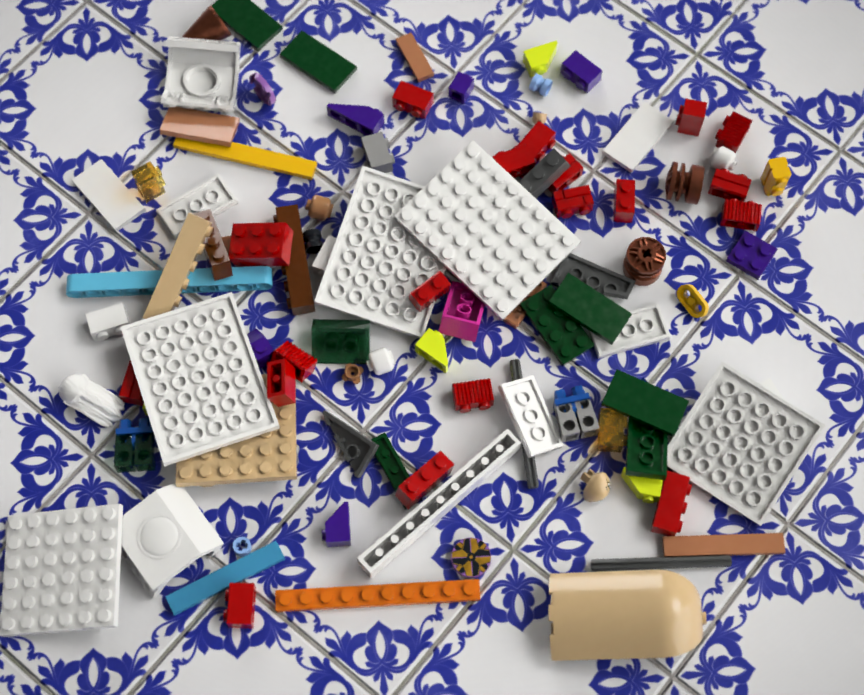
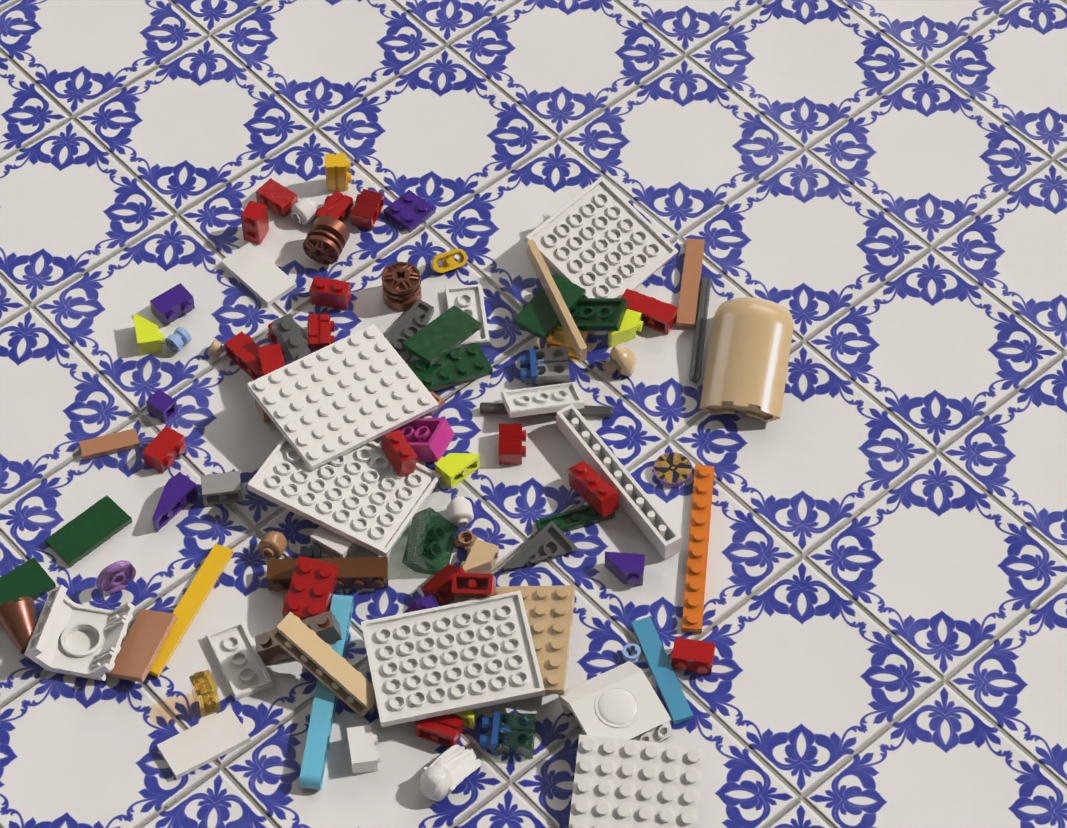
camera: 80 degrees left, 15 degrees down
(328, 388) = (481, 557): none -> tan slope
(646, 405) = (556, 300): none -> tan tile

